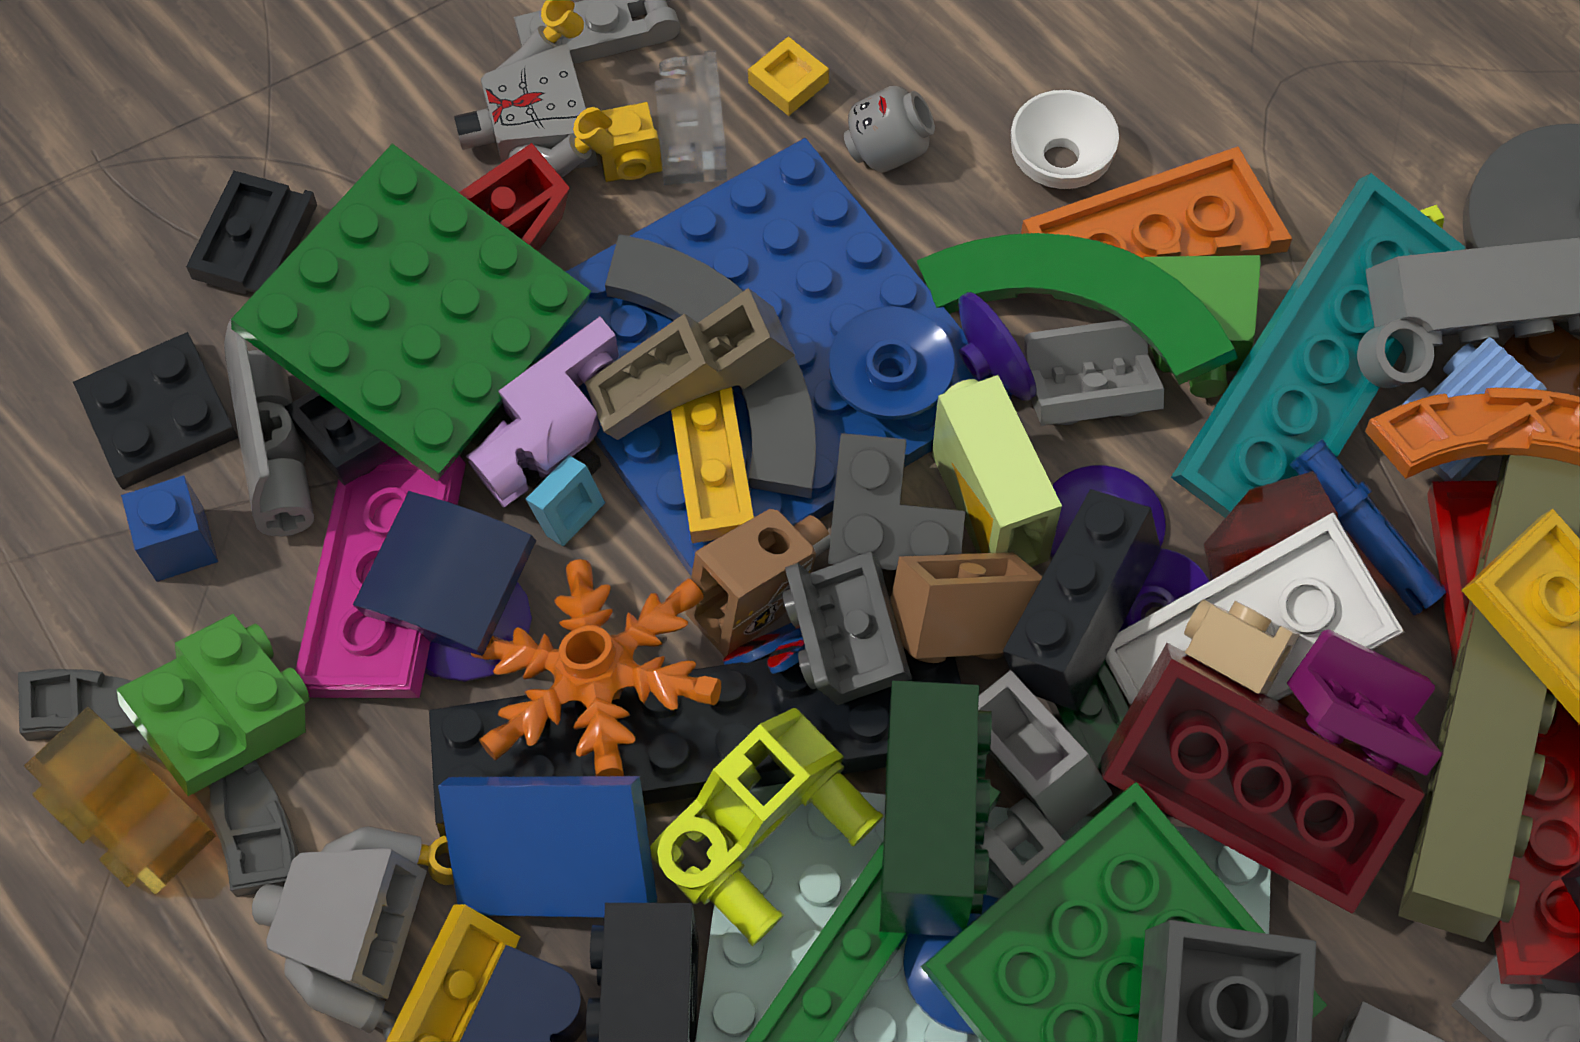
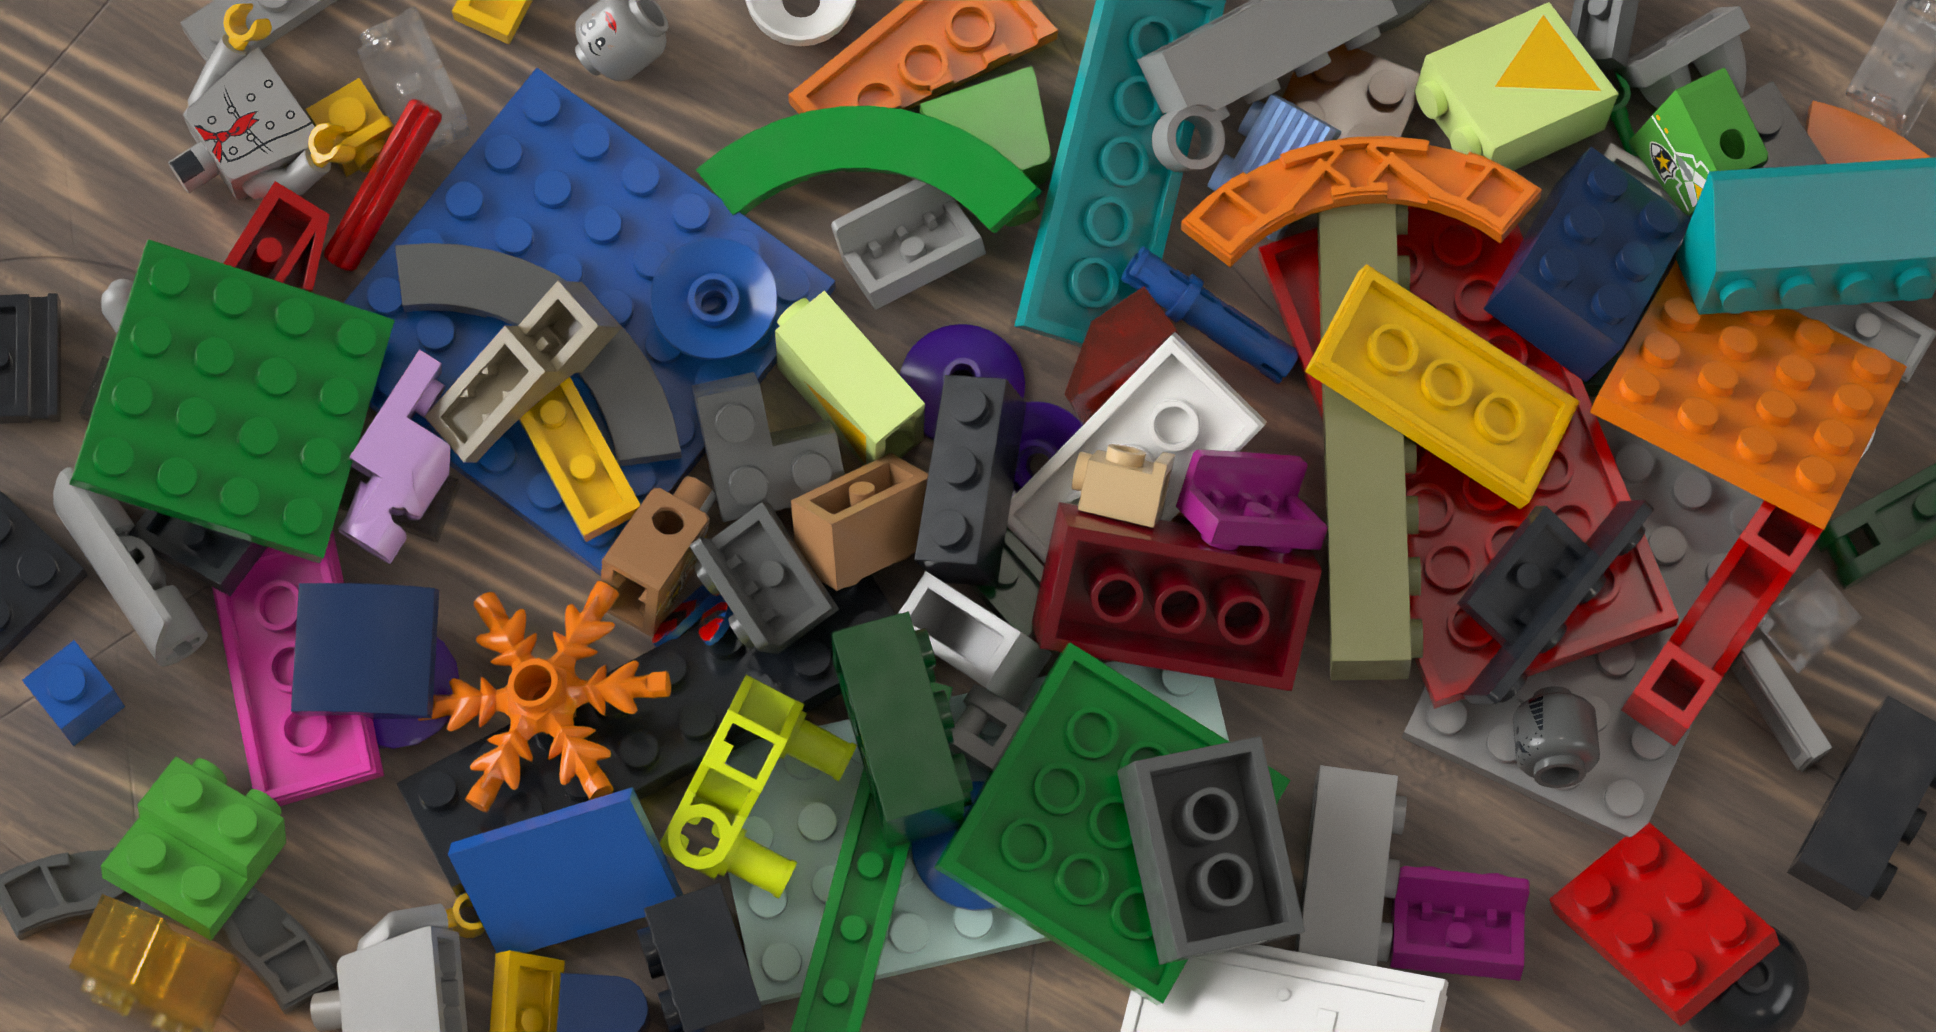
camera: 25 degrees left, 10 degrees up
(565, 500) = (446, 537): medium azure tile -> none
(630, 186) = (382, 185): none -> red axle
(993, 349) = (803, 253): dark purple dish -> none

